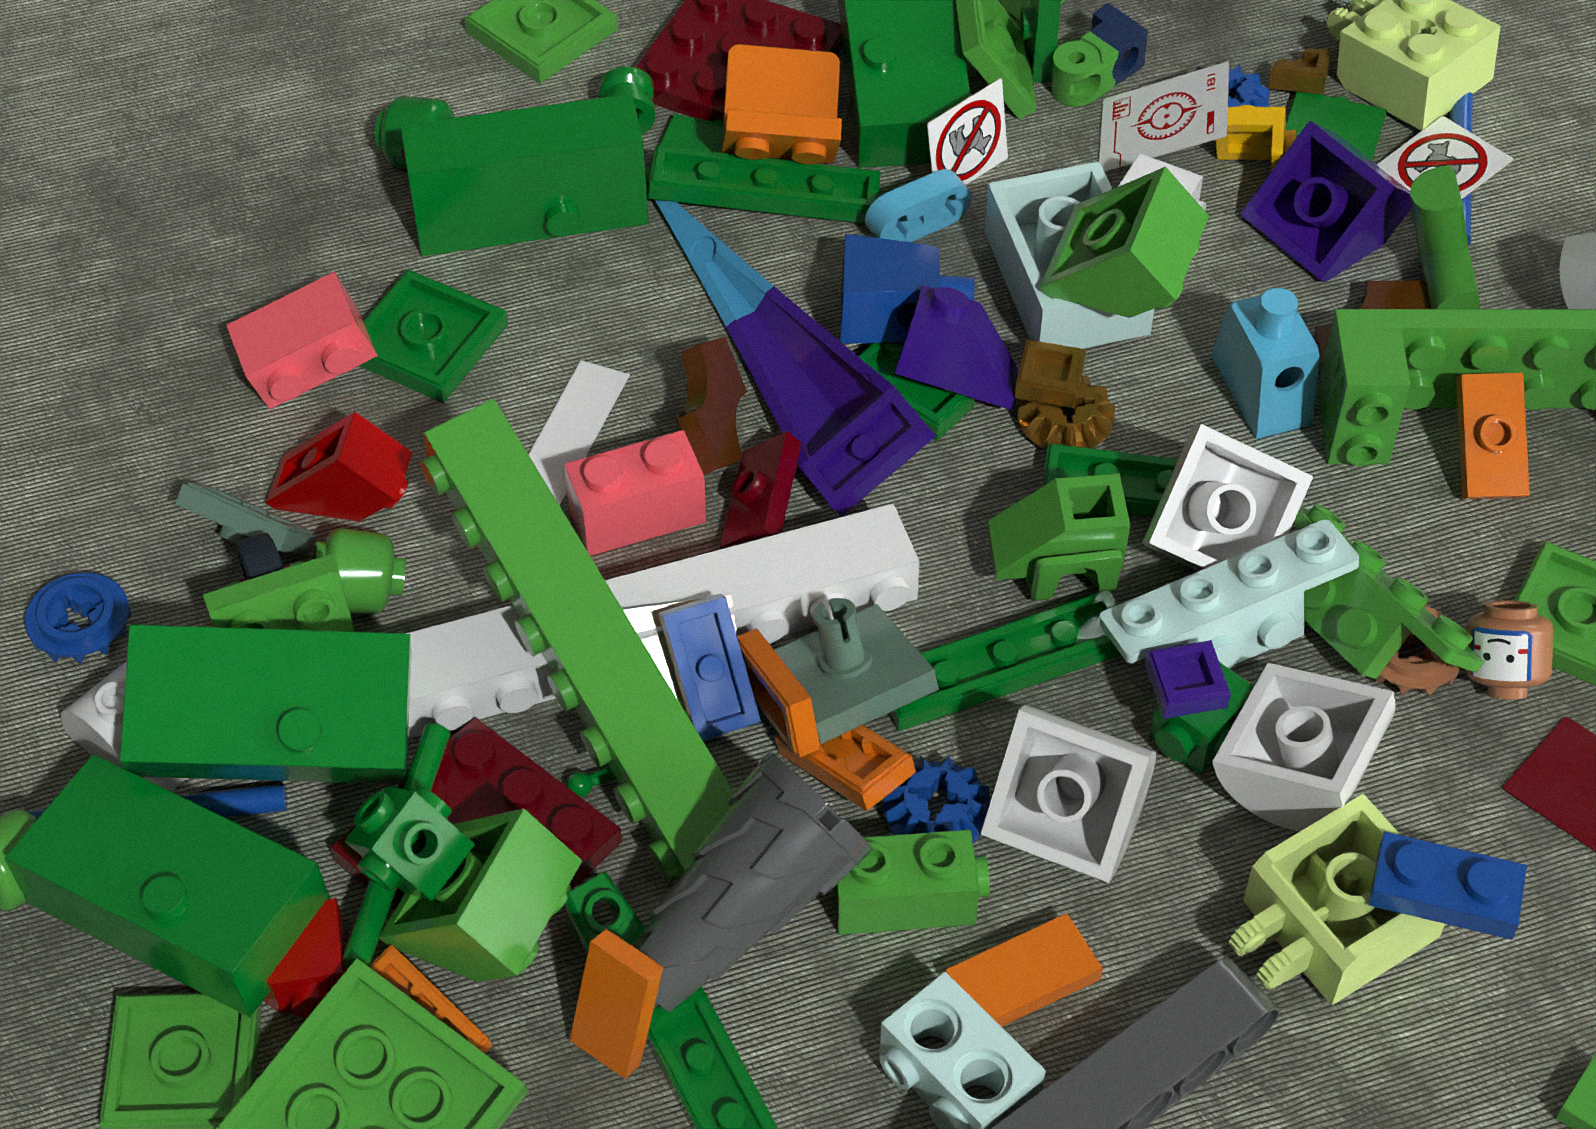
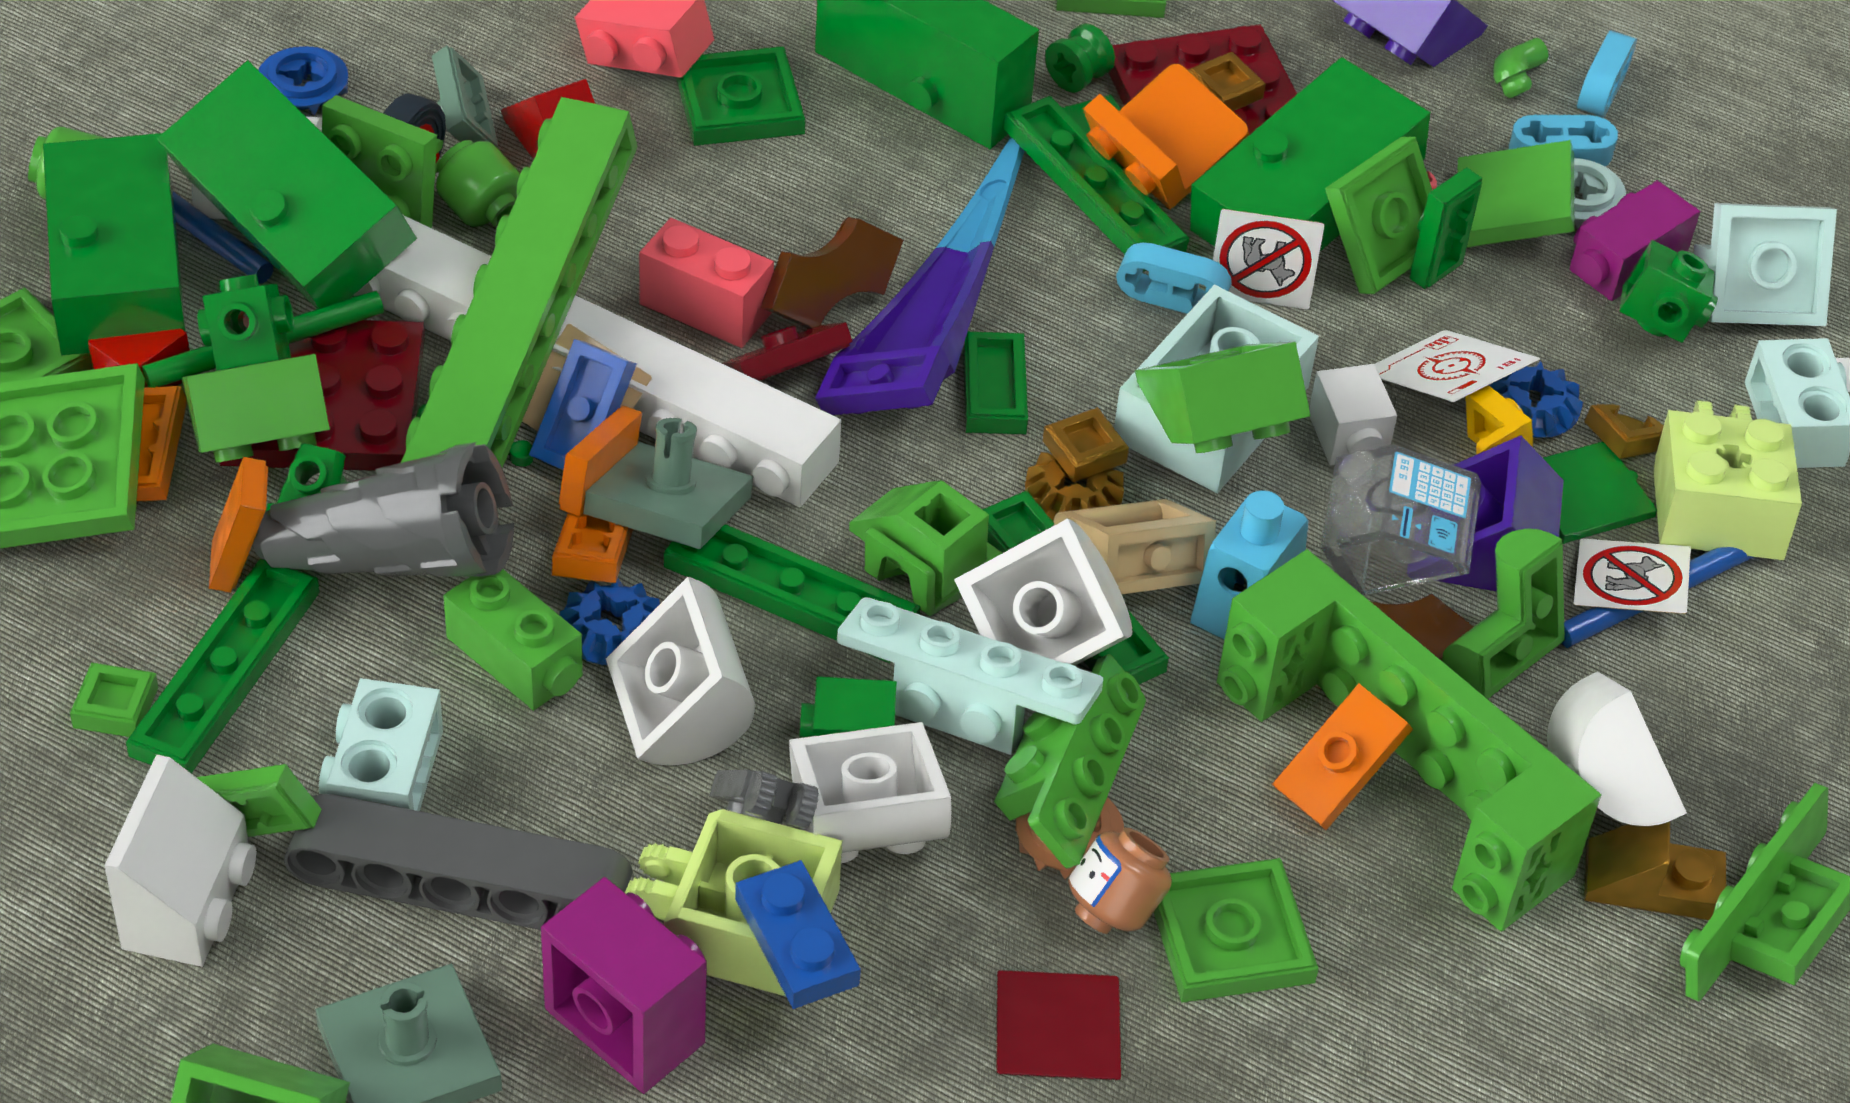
camera: 45 degrees right, 5 degrees down
(575, 422) = (736, 225): white sticker -> none
(758, 30) = (1230, 81): none -> pearl gold tile
(883, 286) = (1060, 307): blue torso -> none
(957, 348) = (1039, 367): dark purple slope -> none
(1029, 970) = (508, 757): orange tile -> none
(1099, 59) = (1469, 294): leg -> none
(1187, 679) = (850, 679): dark purple tile -> none
(1201, 397) = (1148, 542): none -> tan tile
(1275, 813) = (766, 796): none -> dark grey hinge
(1304, 242) = (1399, 519): none -> clear slope
(1378, 1041) = (624, 983): none -> magenta brick

